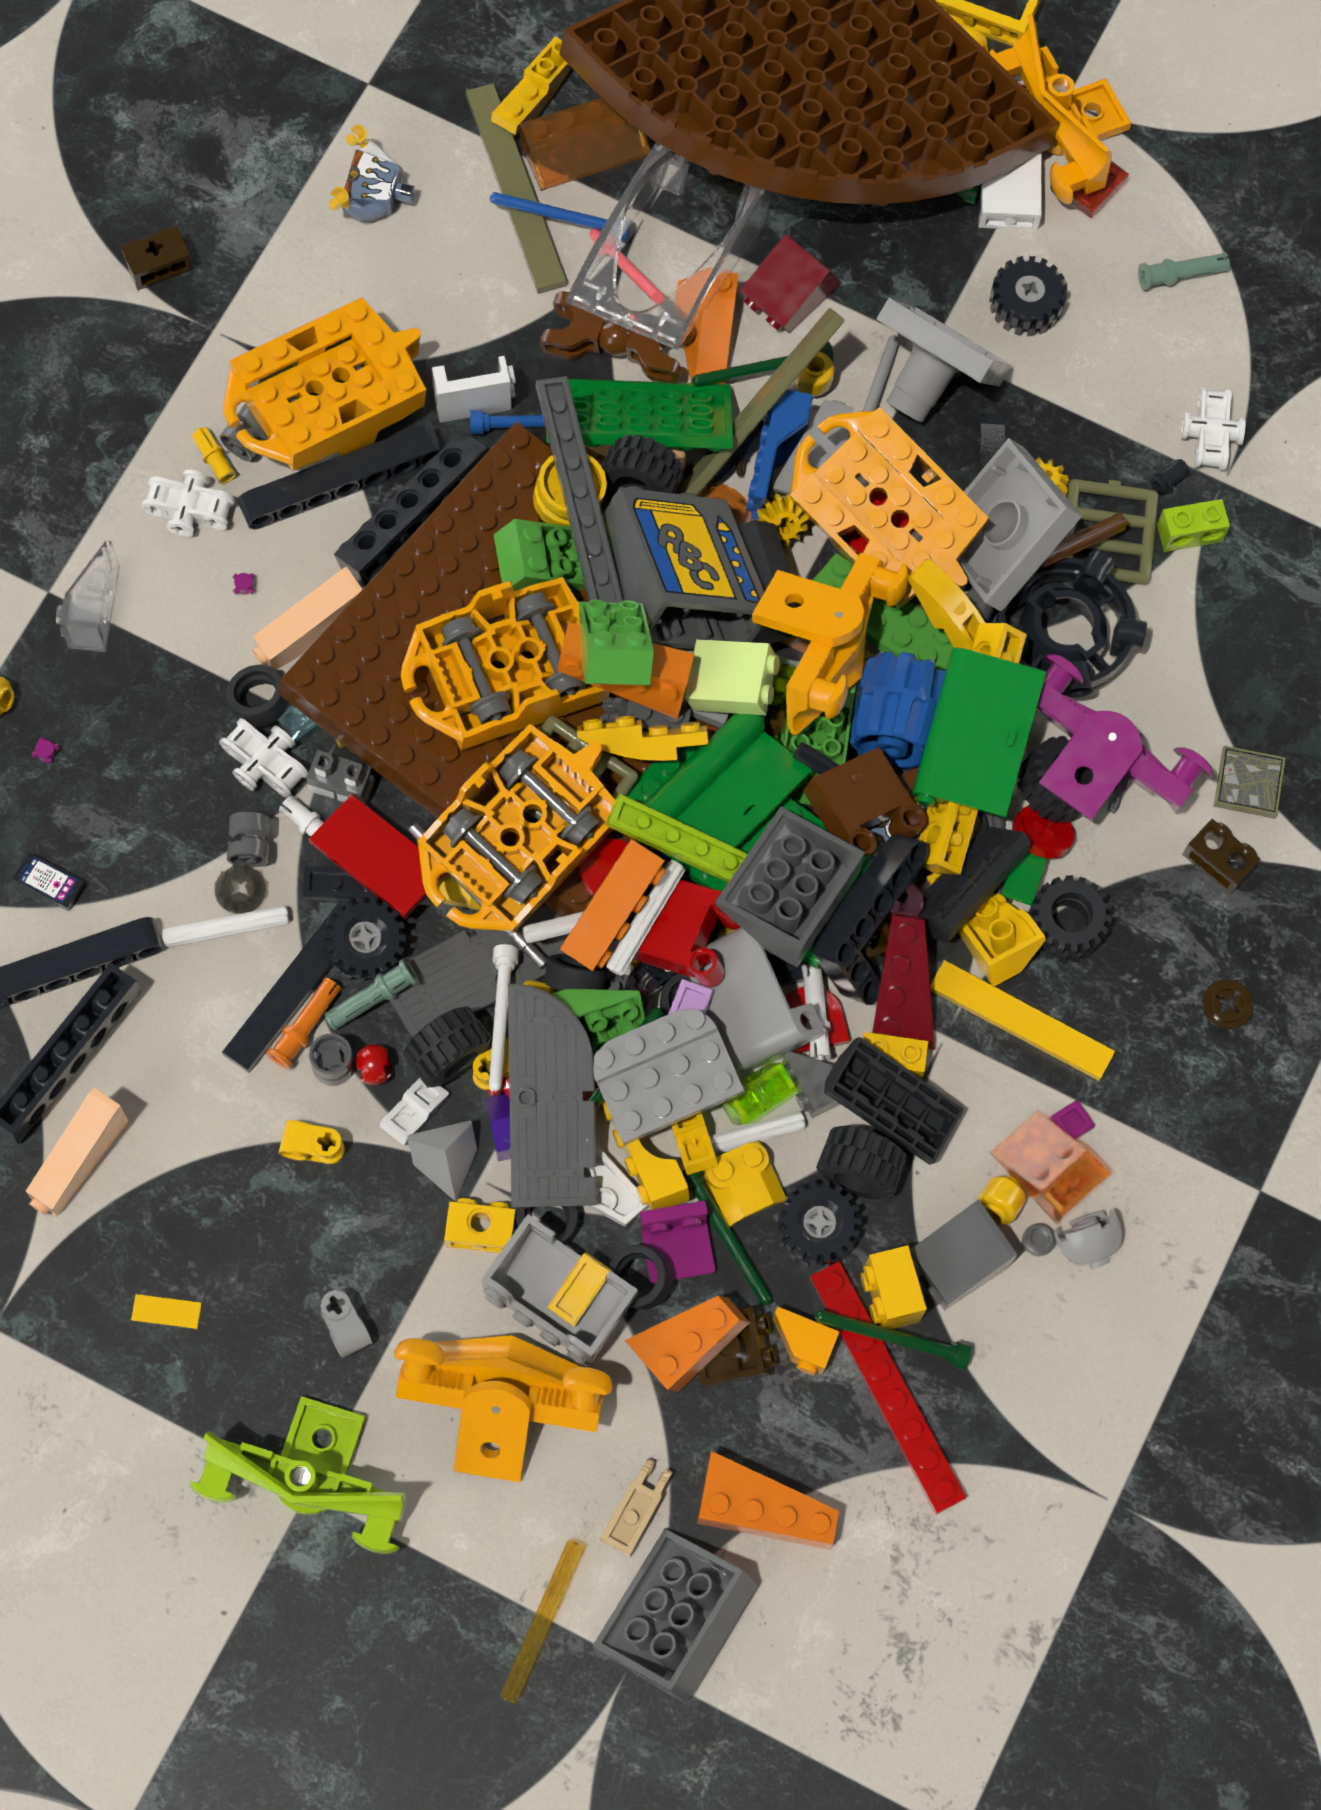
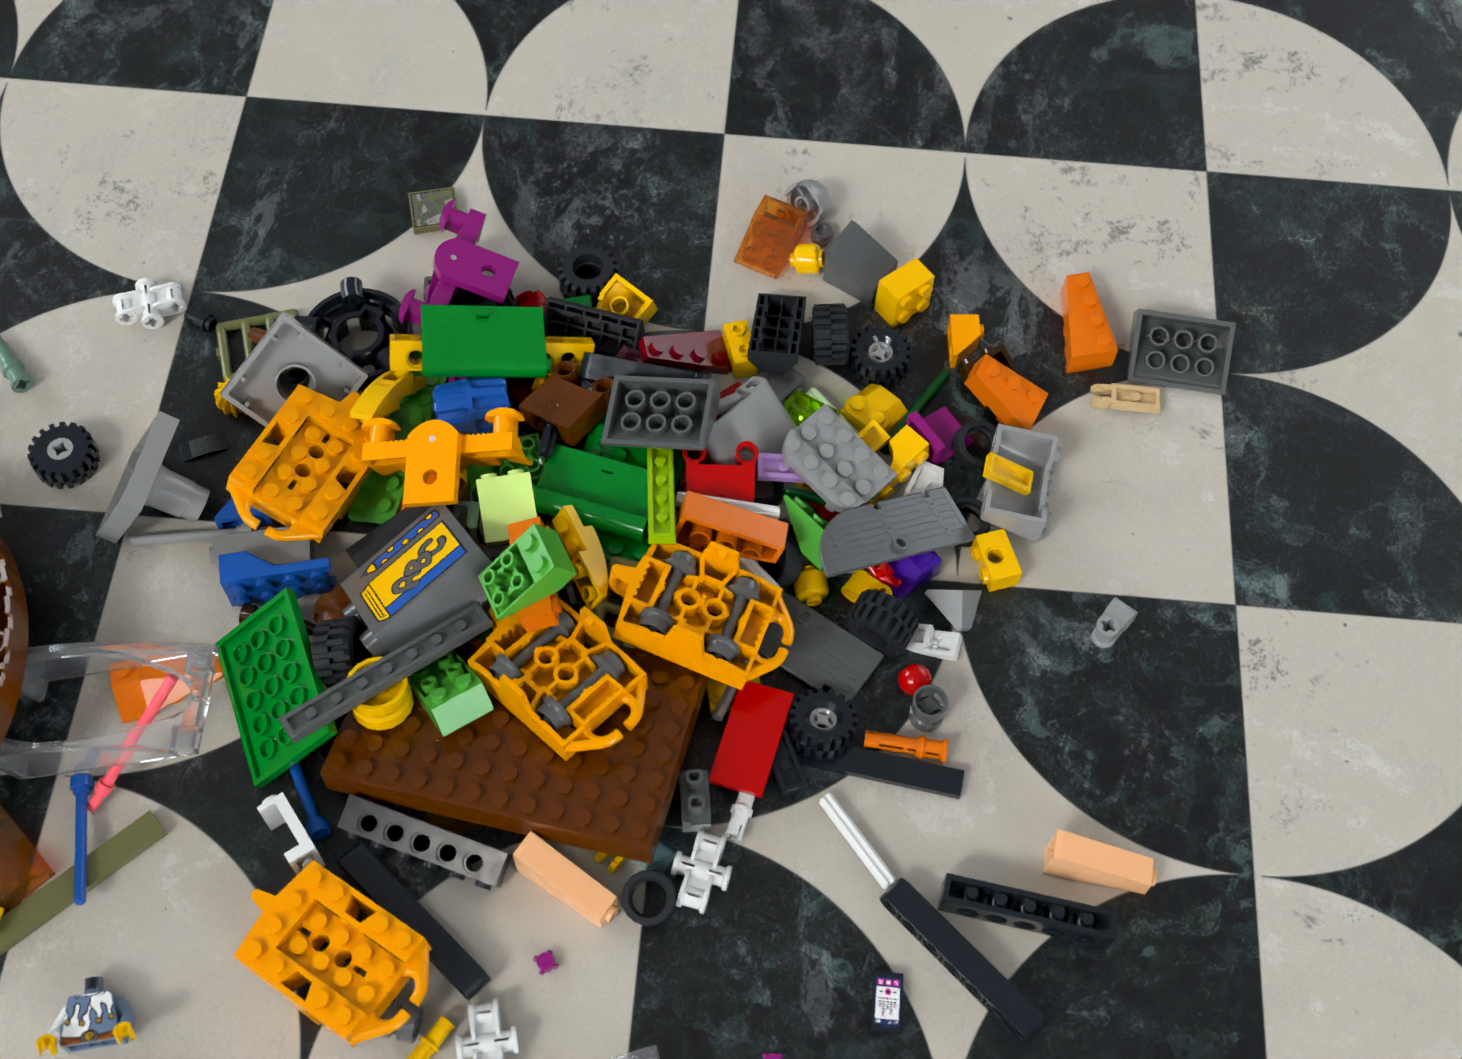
camera: 110 degrees left, 10 degrees down
(166, 1311) = (1170, 754): yellow sticker -> none
(239, 902) = (827, 854): clear smoke gear -> none
(249, 836) = (769, 848): dark grey wheel -> none
(305, 1142) = (996, 703): yellow piece -> none
(306, 1476) = (1237, 600): lime piece -> none
(384, 987) = (855, 691): sand green pin -> none
(500, 1389) = (1106, 530): light orange piece -> none
(505, 959) = (796, 613): white piece -> none
(541, 1622) = (1229, 427): clear yellow axle -> none
(591, 333) = (199, 769): reddish brown piece -> none
(748, 369) = (166, 585): dark green piece -> none
(764, 400) = (217, 573): olive tile -> none
(788, 285) = (104, 619): dark red slope -> none
(792, 516) = (335, 549): yellow gear -> none
(817, 376) = (187, 579): yellow head -> none
(890, 1393) = (965, 287): red plate -> none
(955, 1354) = (924, 254): dark green piece -> none
(1021, 1020) = (673, 282): yellow tile -> none
(1073, 1120) = (729, 241): magenta tile -> none
(1193, 525) = (240, 290): lime brick -> none
(1216, 861) = (501, 206): dark brown brick -> none
(1241, 1004) = (602, 172): dark brown gear -> none

